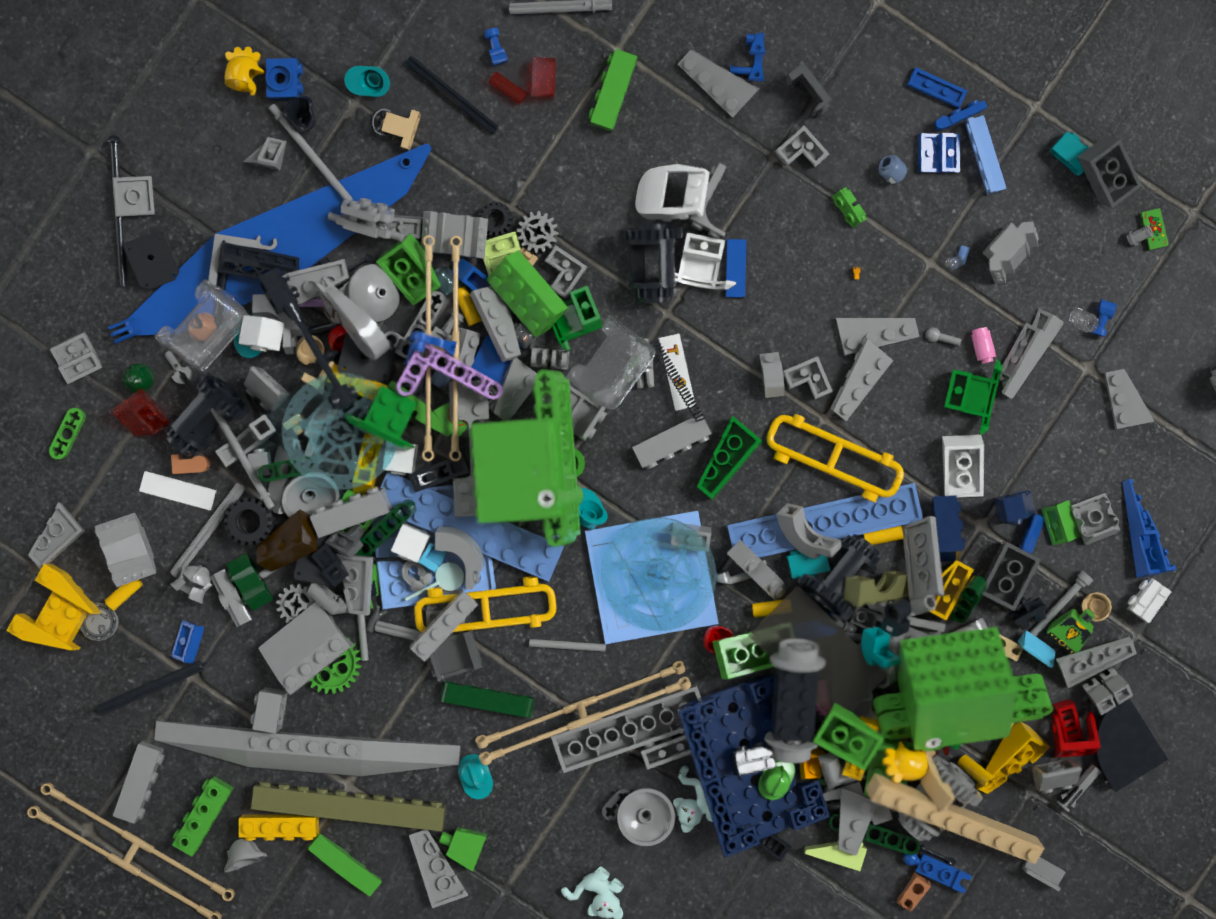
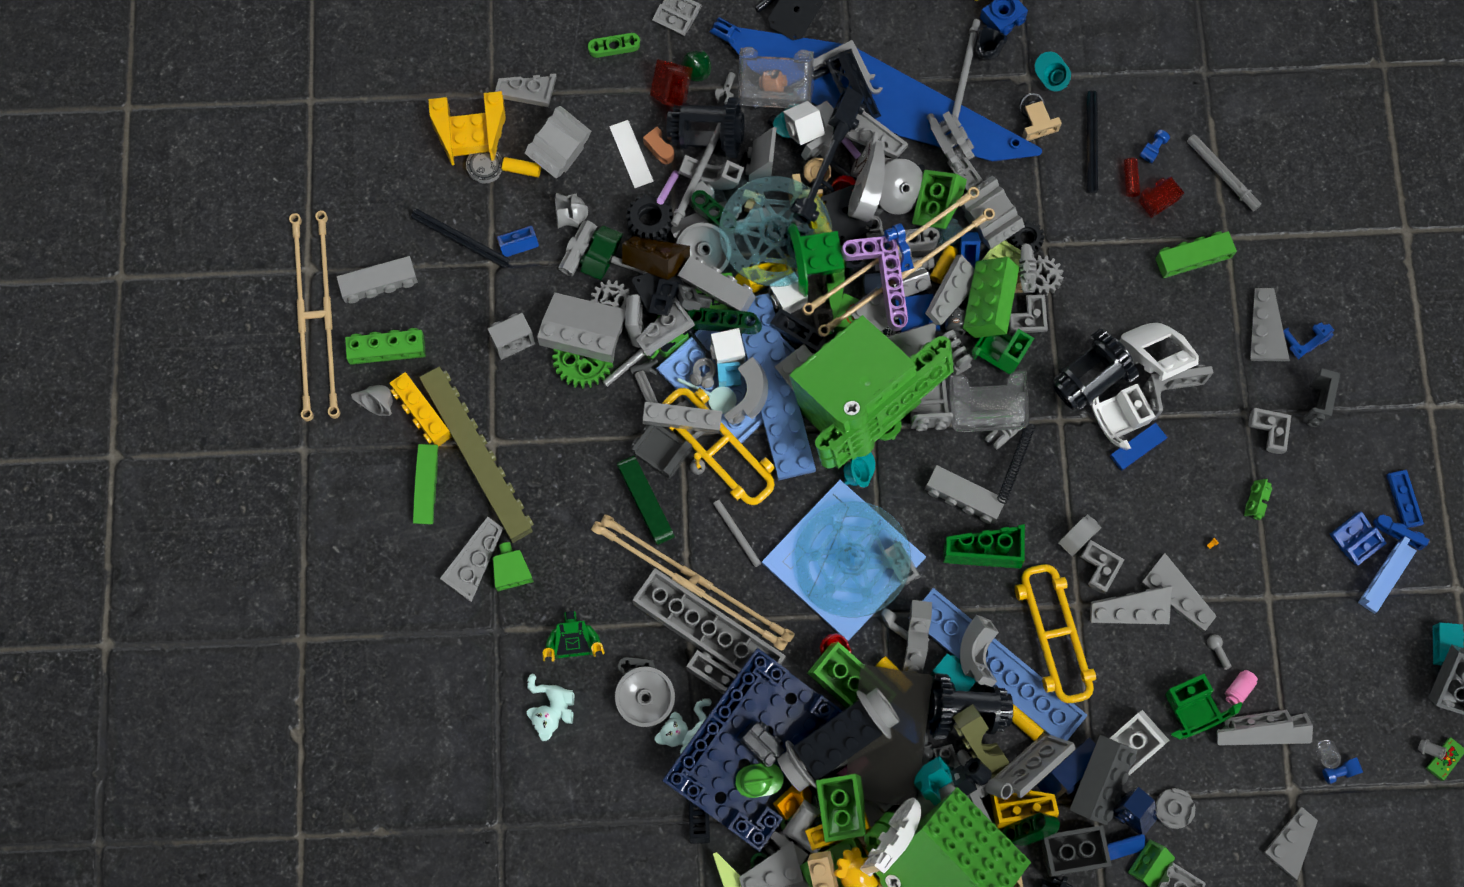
camera: 50 degrees right, 15 degrees down
(207, 530) = (613, 195): light grey axle -> none
(233, 487) = (667, 188): none -> lavender bar
(268, 154) = (939, 44): light grey slope -> none
(307, 751) = (499, 392): light grey wedge -> none
(475, 777) = (573, 538): teal piece -> none
(489, 633) = (697, 463): none -> light grey hinge
(525, 244) = (1027, 269): none -> light grey hinge
(558, 839) = (572, 639): none -> torso
(674, 349) = (1037, 446): white sticker -> none
(892, 169) = (1316, 509): sand blue head -> none
(906, 722) = (896, 840): none -> white slope
(958, 260) = (1290, 617): arm -> none
(974, 514) = (1103, 780): none -> dark grey brick
(1010, 249) = (1334, 650): light grey slope -> none
(1033, 470) = (1175, 808): none -> light grey tile

